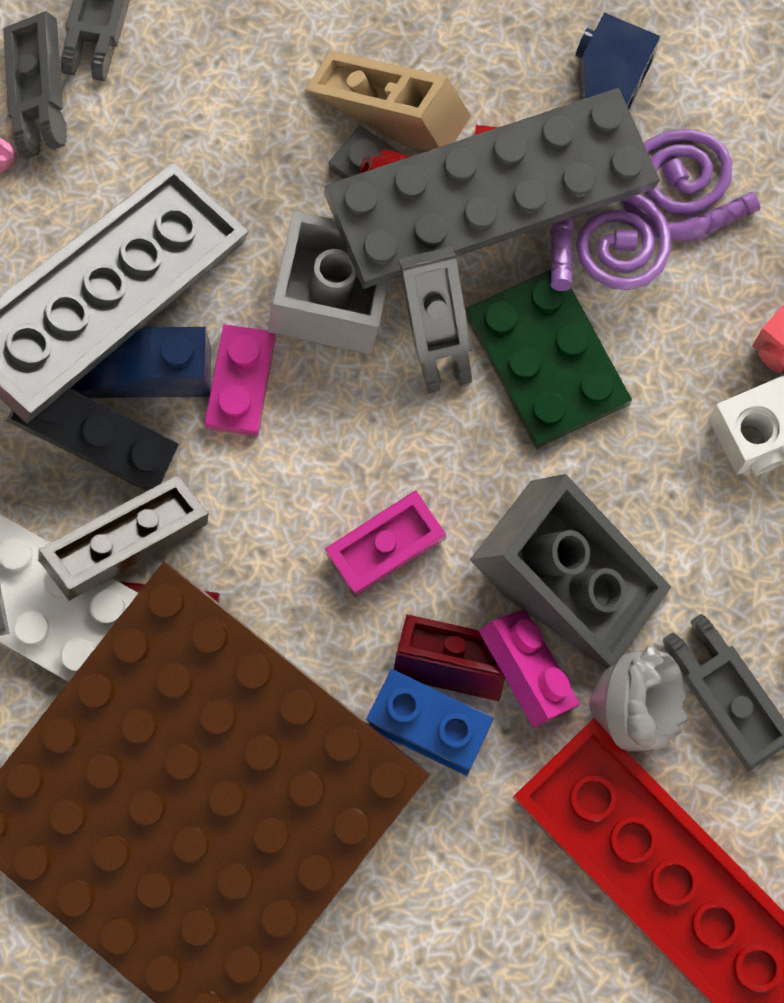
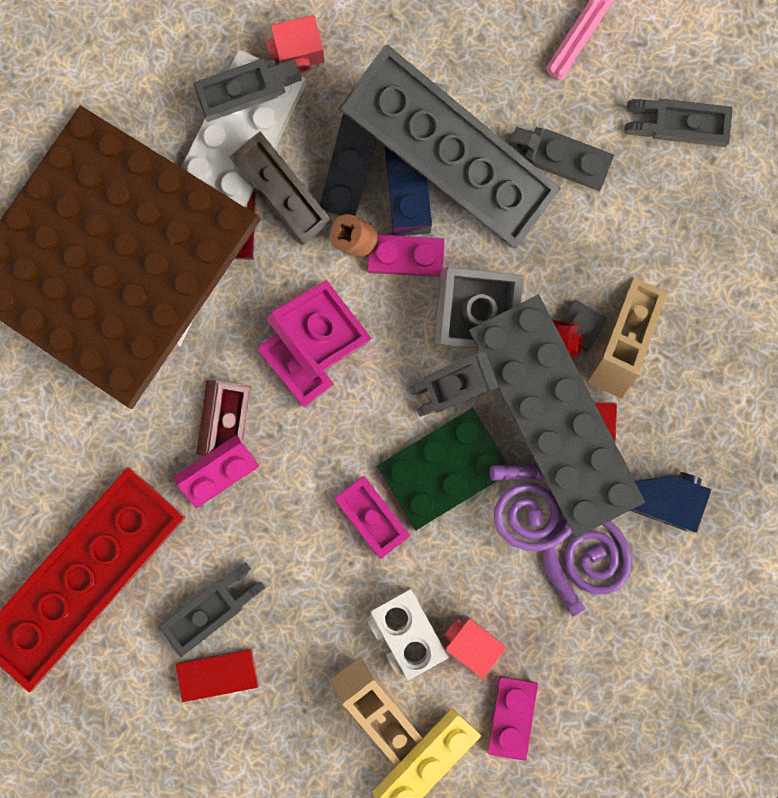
camera: 80 degrees right, 10 degrees up
(34, 83) = (613, 83): dark grey hinge -> none
(126, 157) = (563, 156): none -> dark grey hinge
(213, 435) = (363, 235): none -> nougat wheel
(336, 501) = (318, 329): none -> dark pink plate
(429, 722) = (171, 406): blue hinge -> none
(571, 569) = (285, 495): dark grey slope -> none
(612, 453) = (372, 517): none -> dark pink plate
(640, 700) = (195, 548): light grey hair -> none

